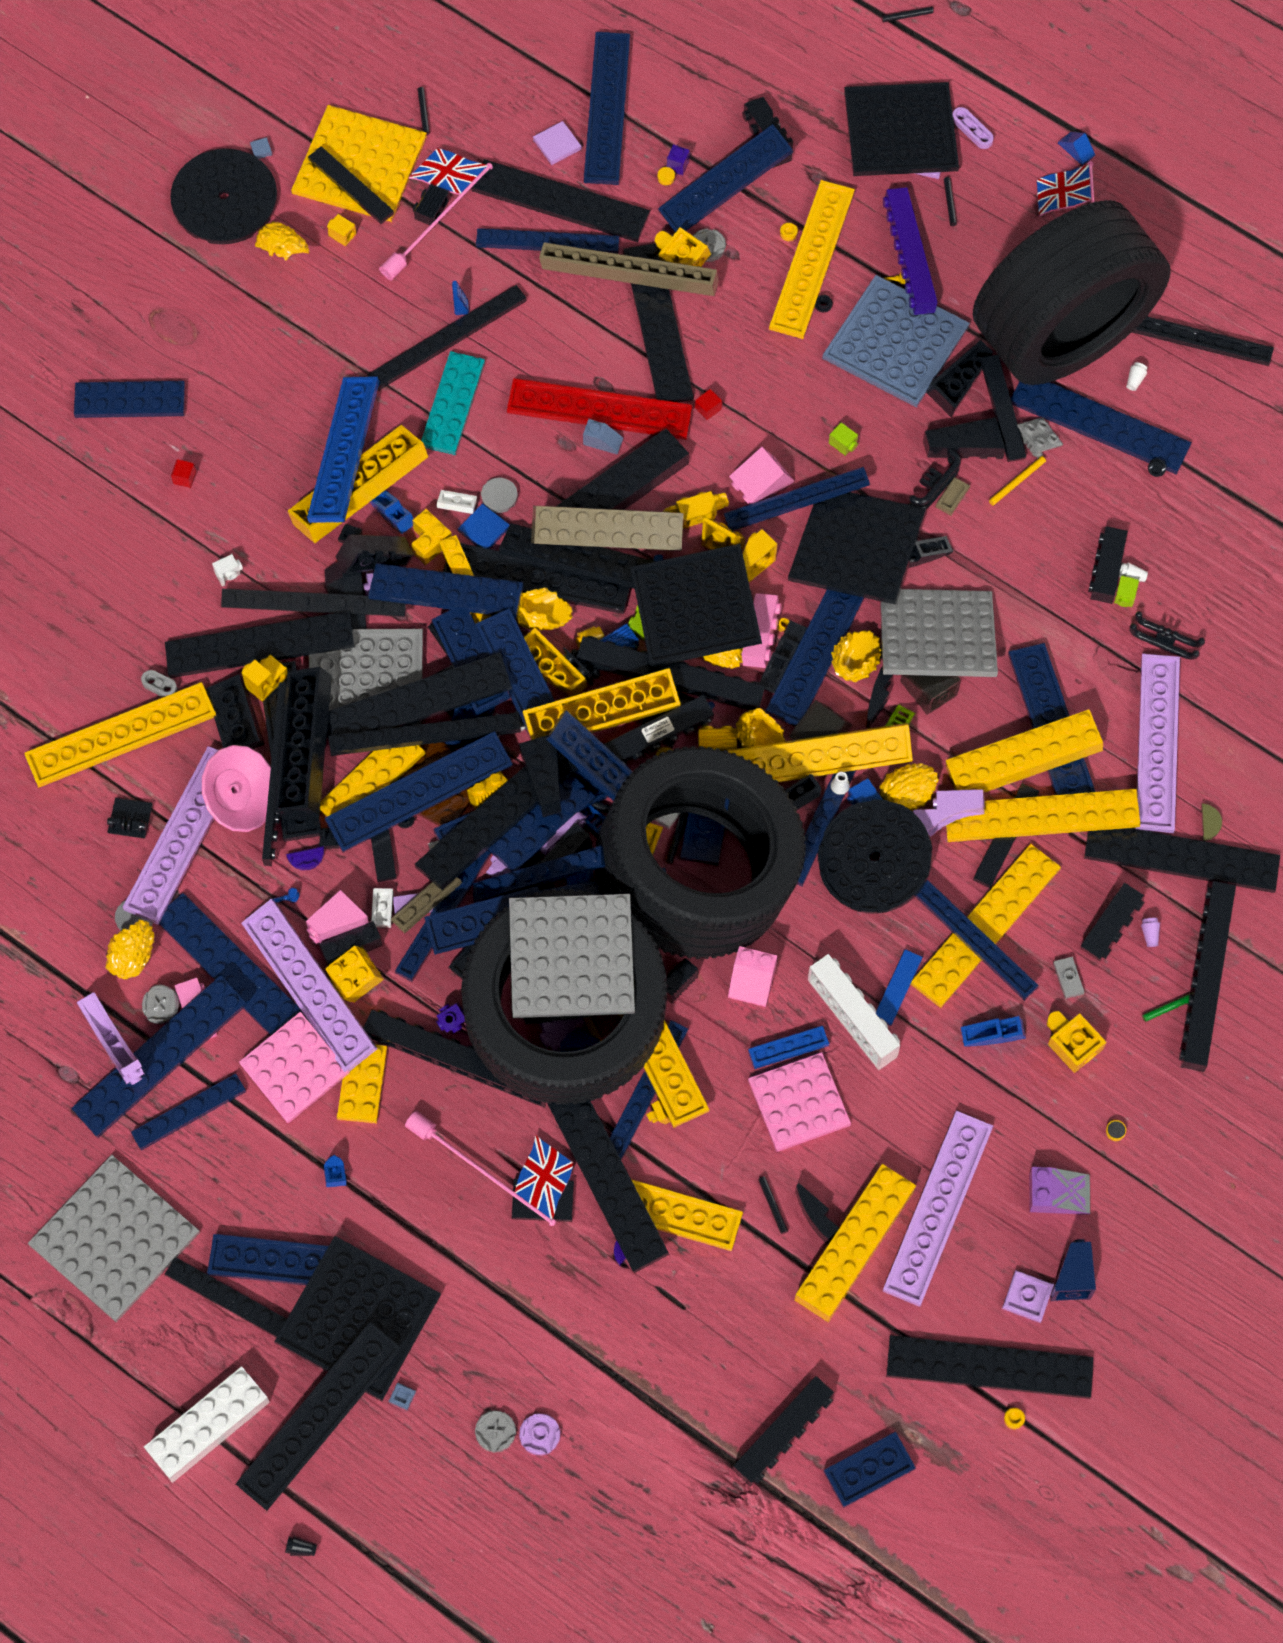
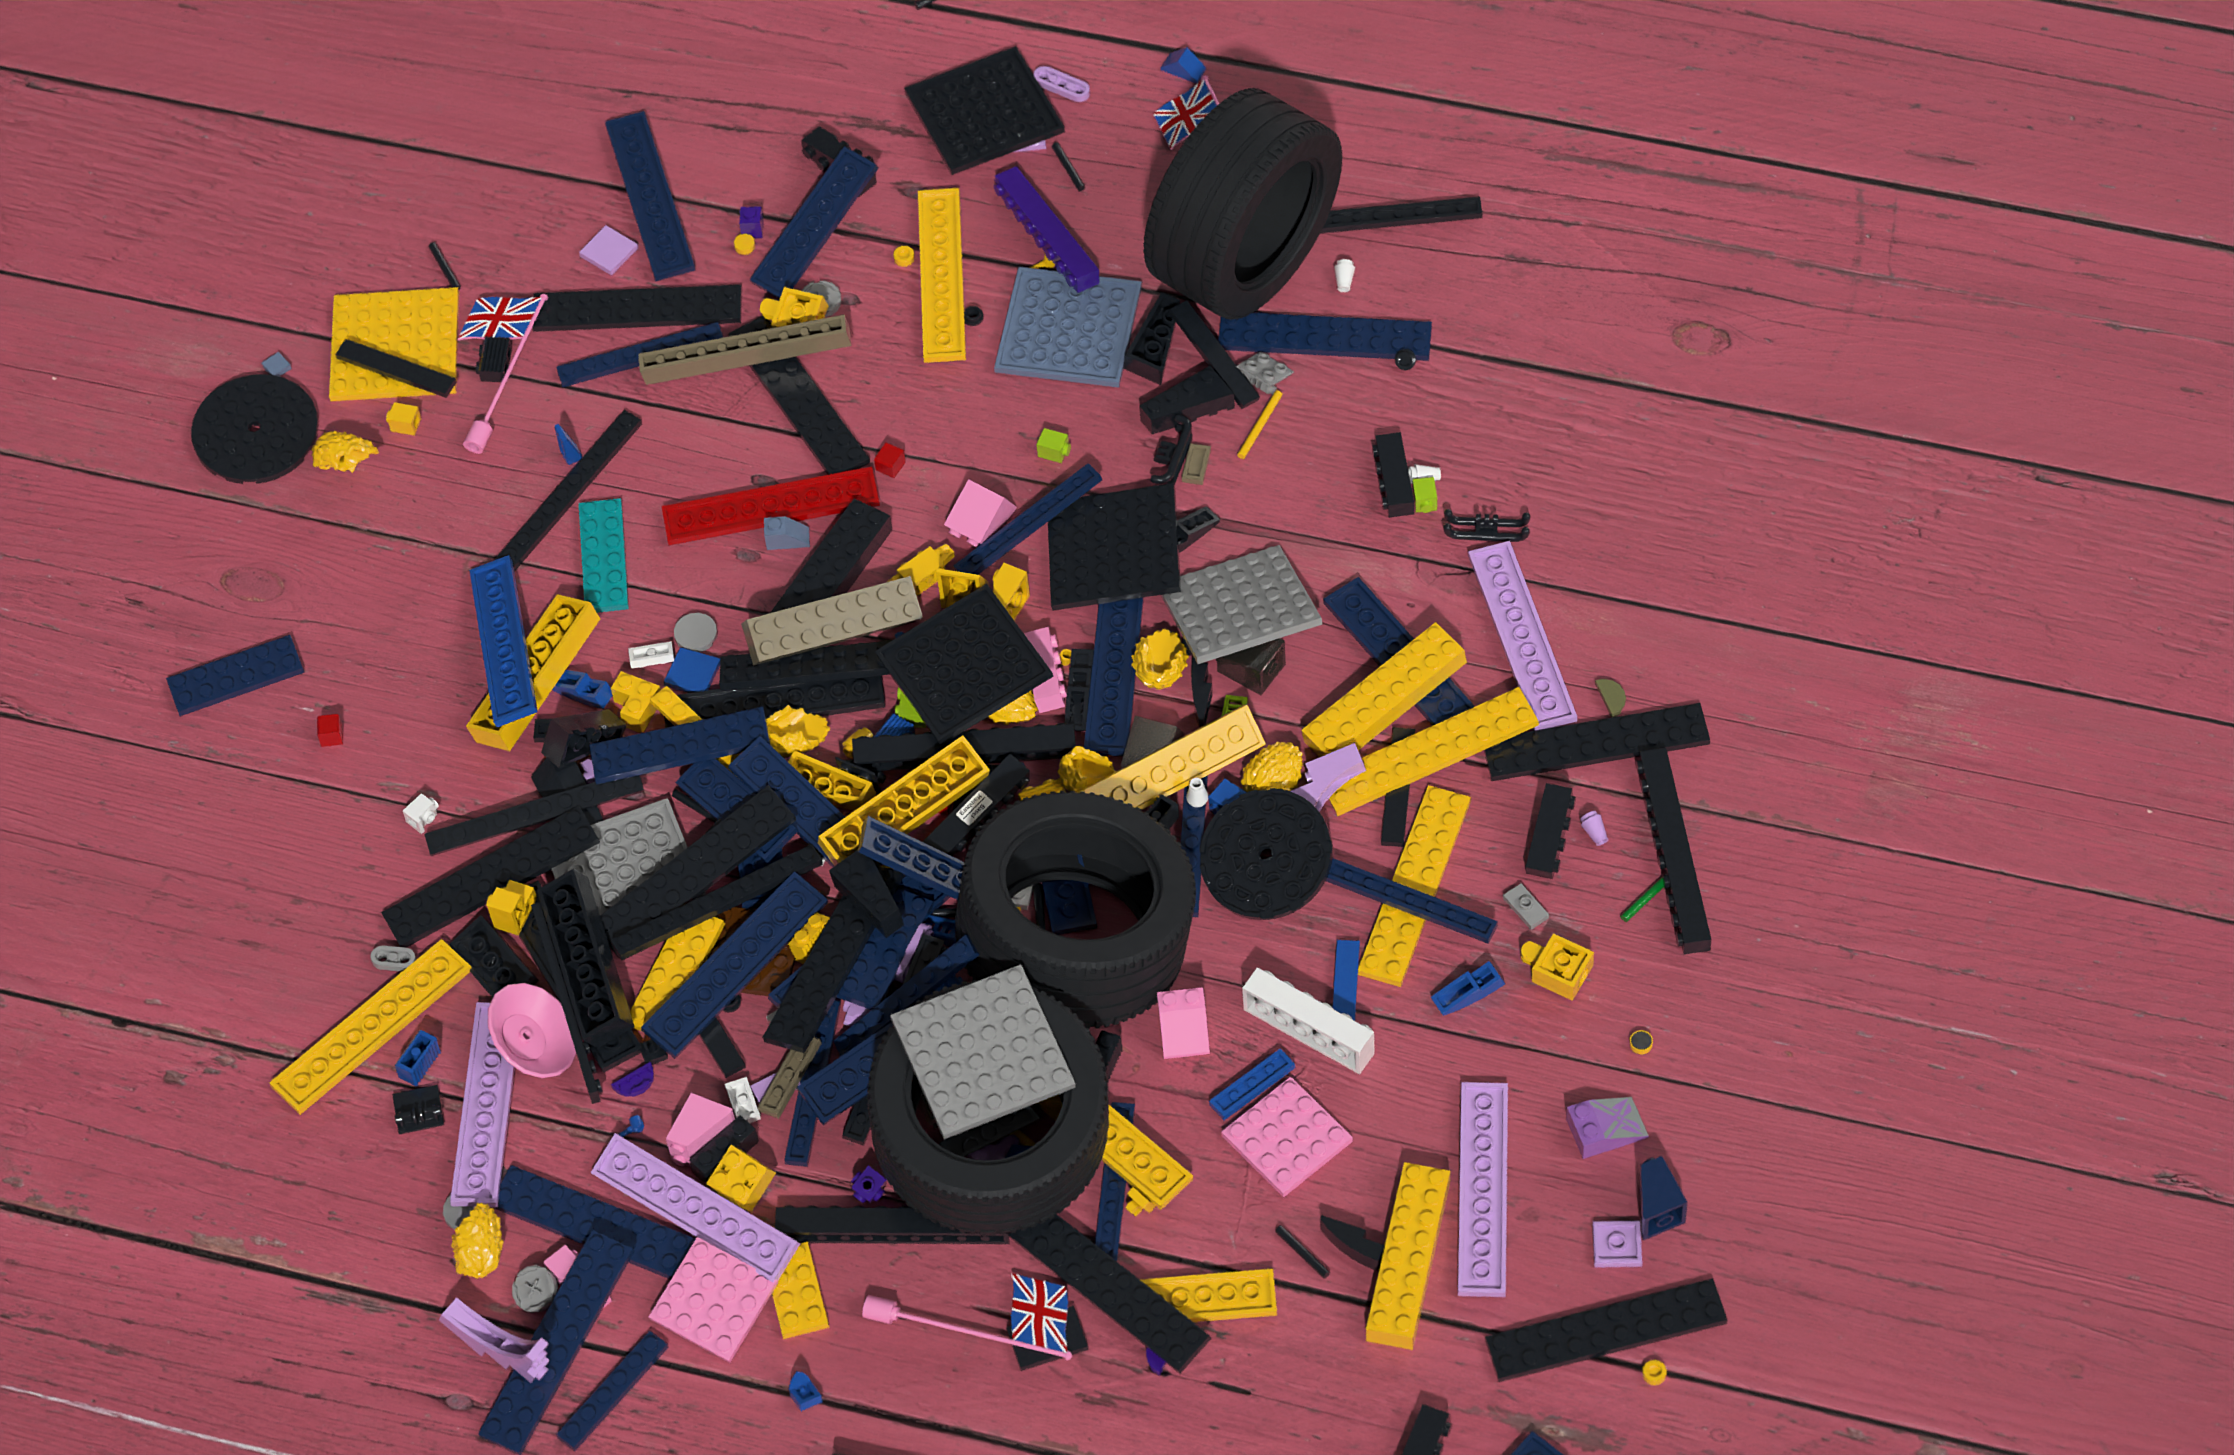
camera: 15 degrees left, 10 degrees down
(144, 776) = (417, 1058): none -> blue brick

